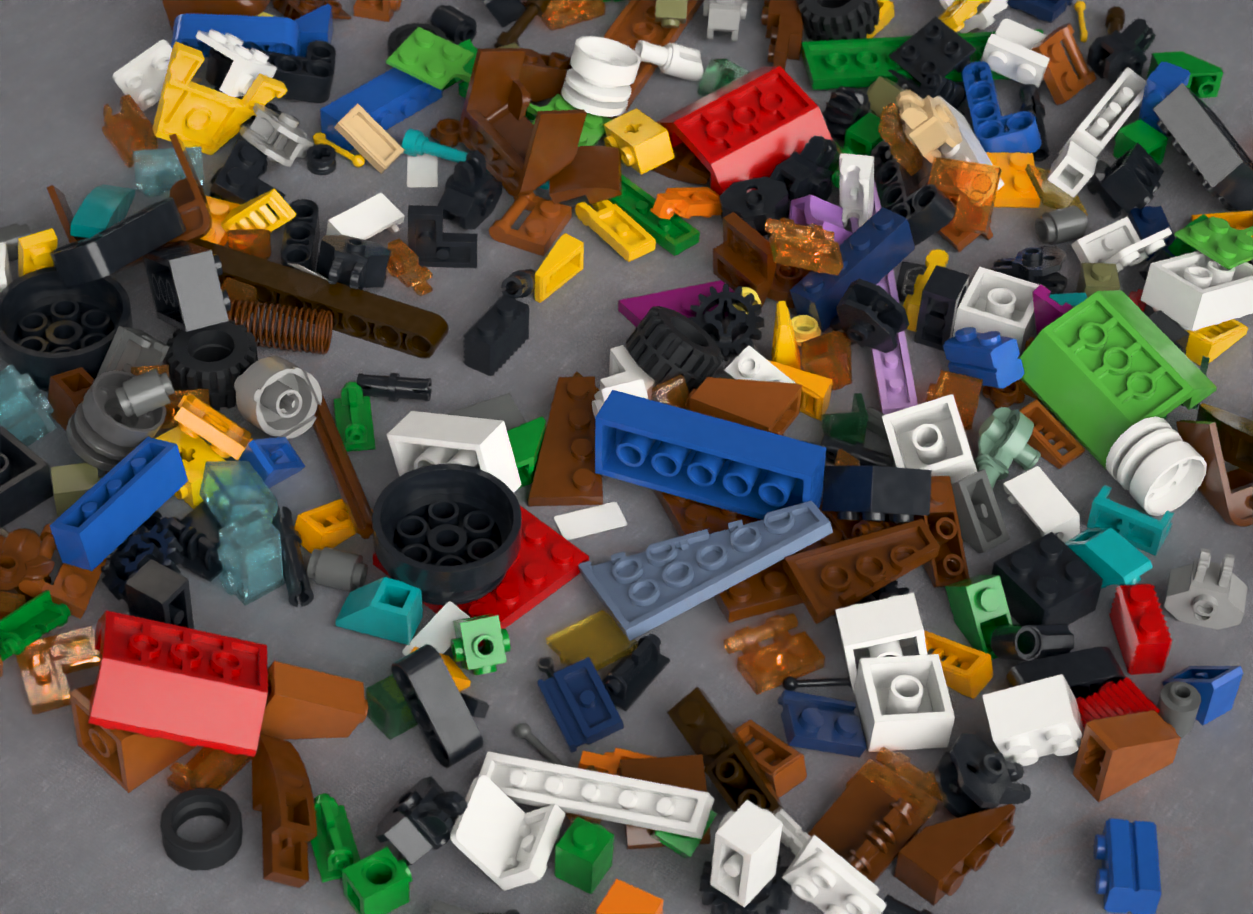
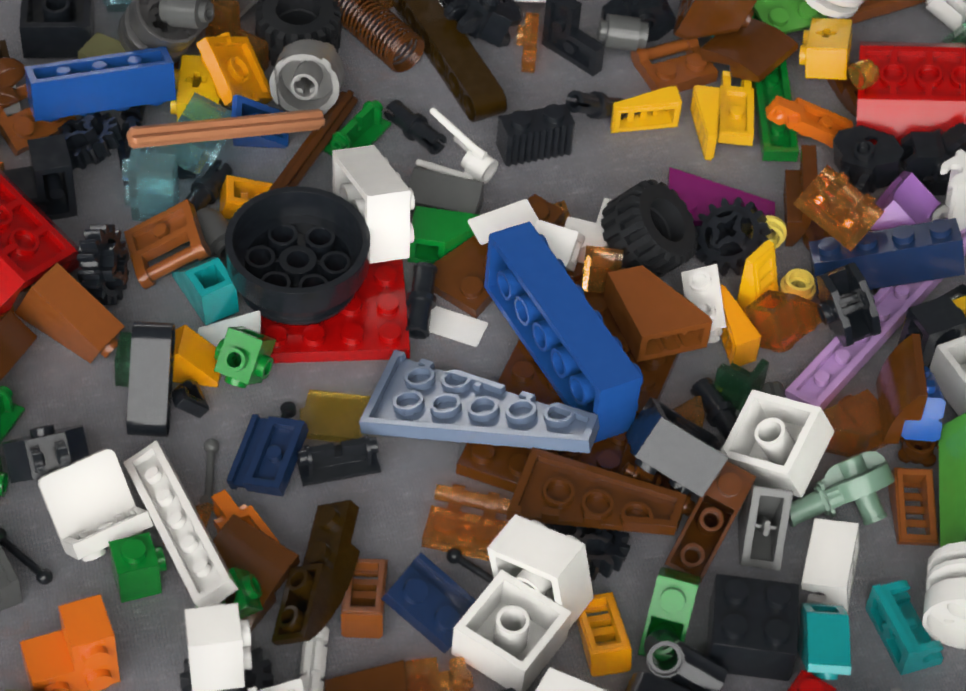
camera: 40 degrees right, 5 degrees up
(272, 473) = (224, 128): none -> nougat axle
(287, 640) = (103, 263): none -> black gear
(305, 591) = (162, 235): none -> dark orange plate
(476, 383) = (476, 162): none -> white plant
(481, 214) = (623, 32): none -> dark grey brick
(557, 513) = (421, 300): none -> black pin
(561, 412) = (502, 218): none -> white sticker
(607, 247) = (705, 115): none -> yellow slope
(695, 141) = (863, 74): none -> clear yellow hinge
(982, 348) = (901, 388): none -> reddish brown slope

